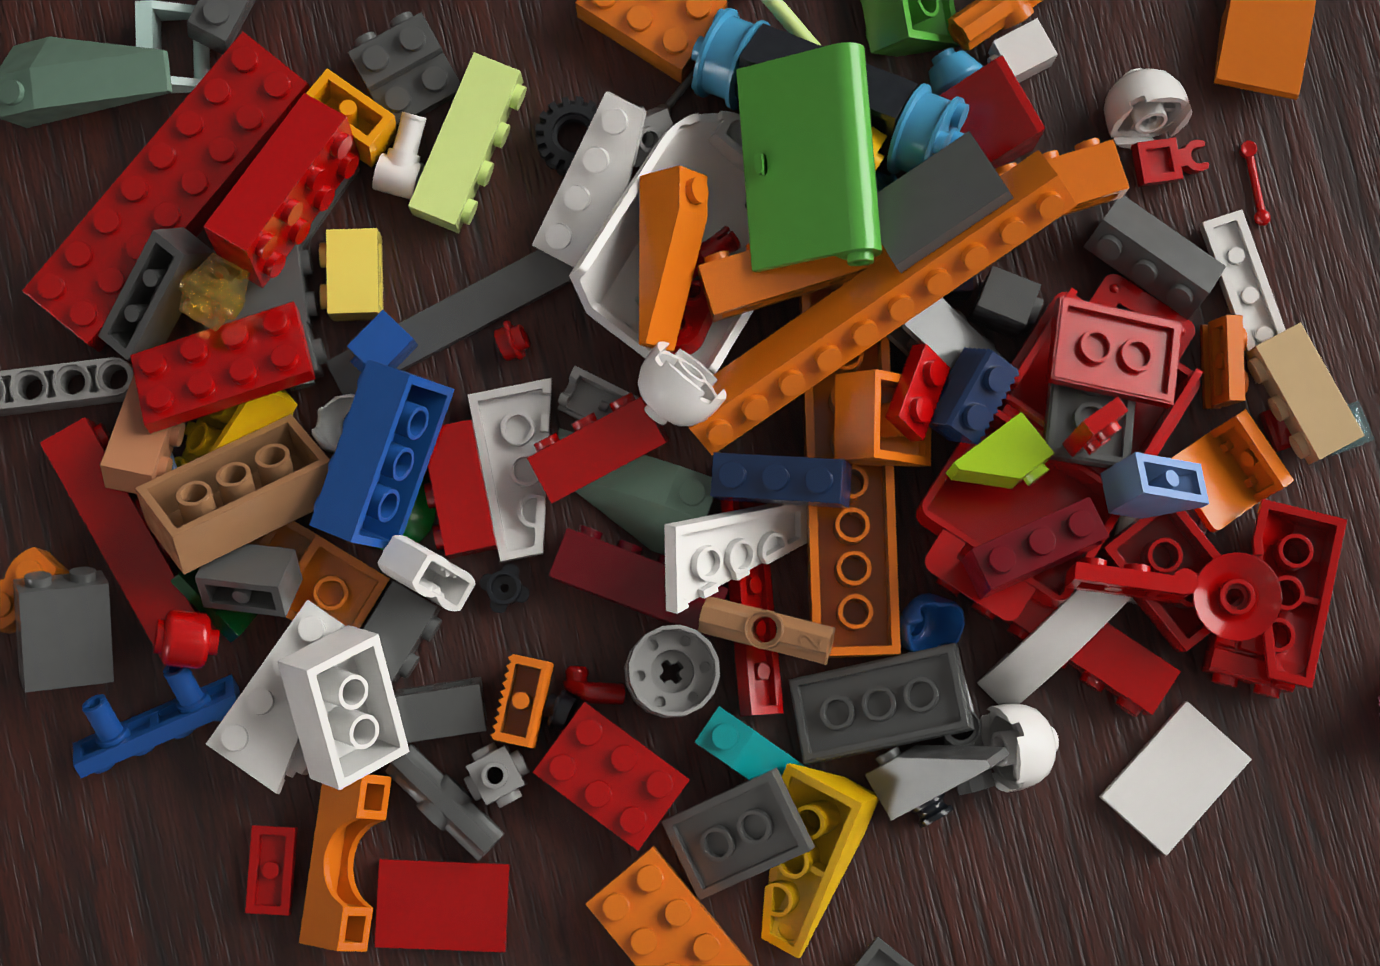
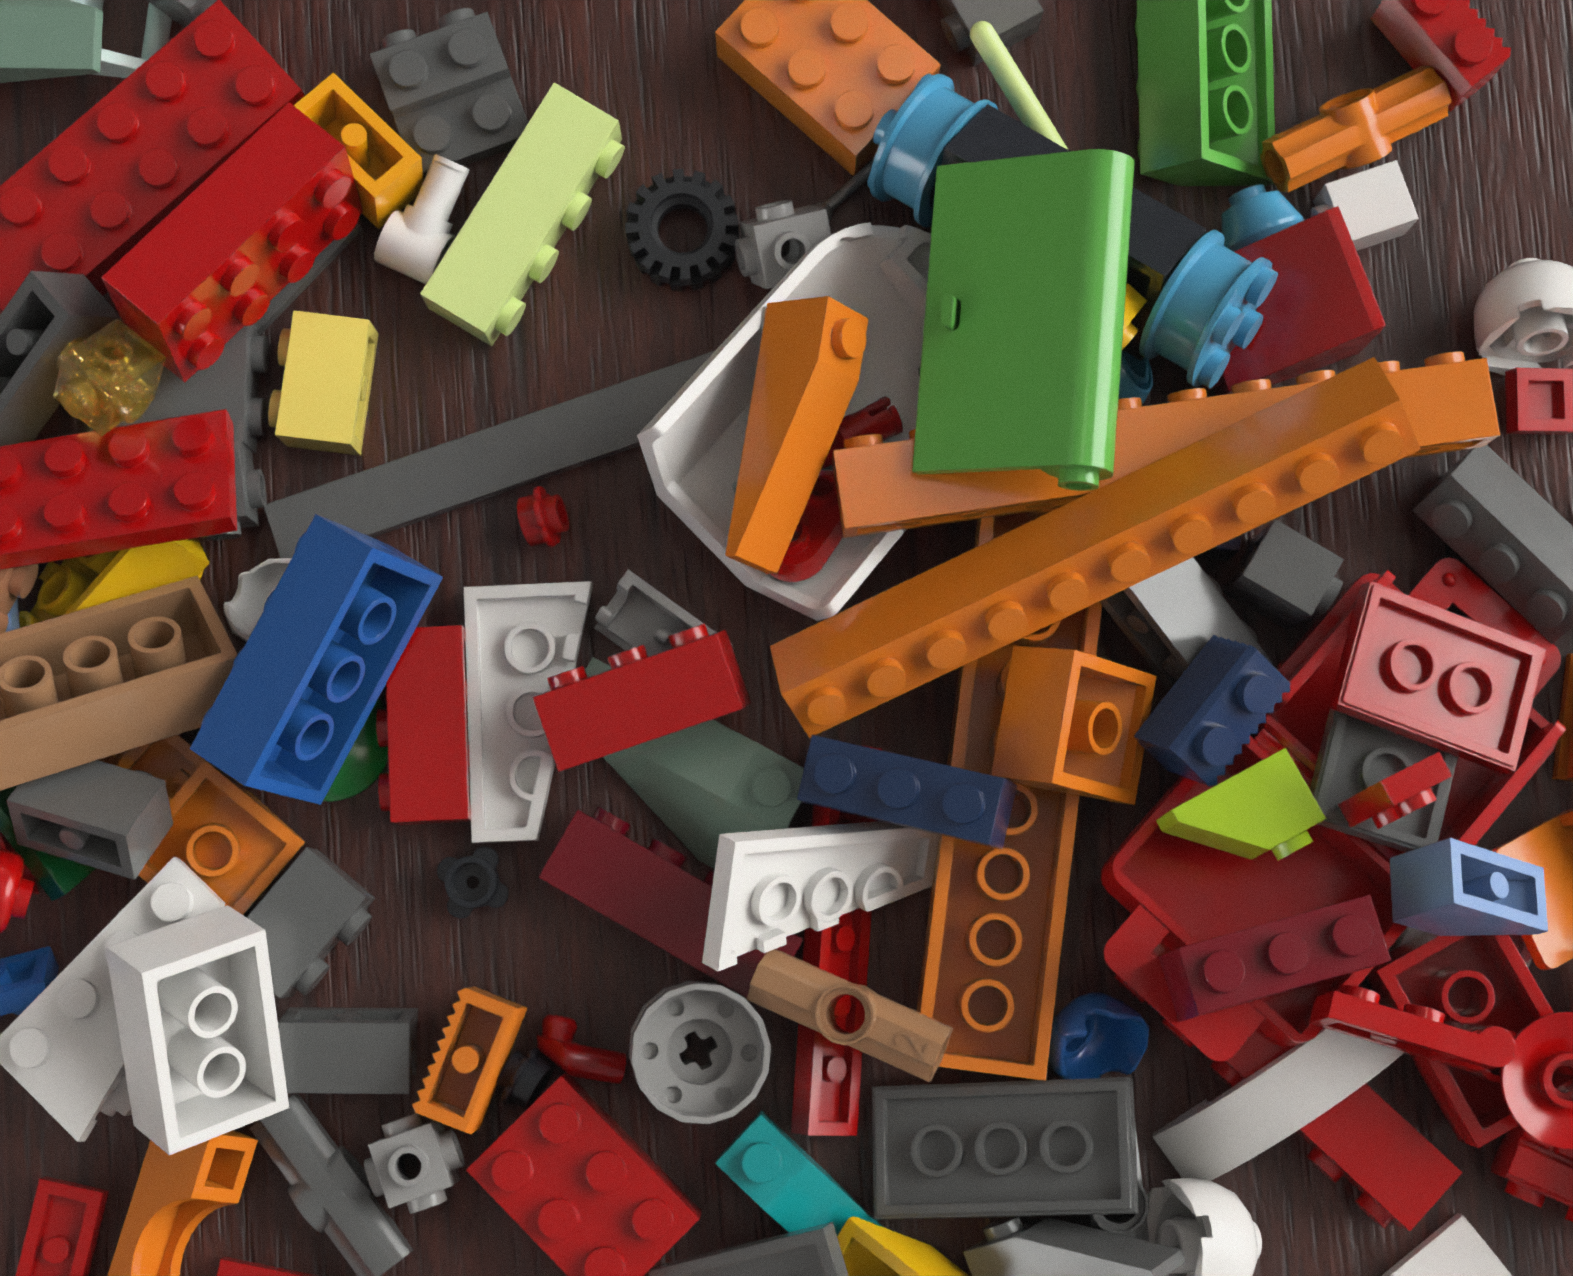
camera: 10 degrees right, 0 degrees up
(381, 342) = (348, 492): blue brick -> none
(426, 573) = (356, 845): white brick -> none
(593, 180) = (700, 297): white wing -> none
(677, 388) = (773, 629): white cylinder -> none
(917, 392) = (1133, 693): red plate -> none
(938, 201) = (1211, 411): dark grey tile -> none

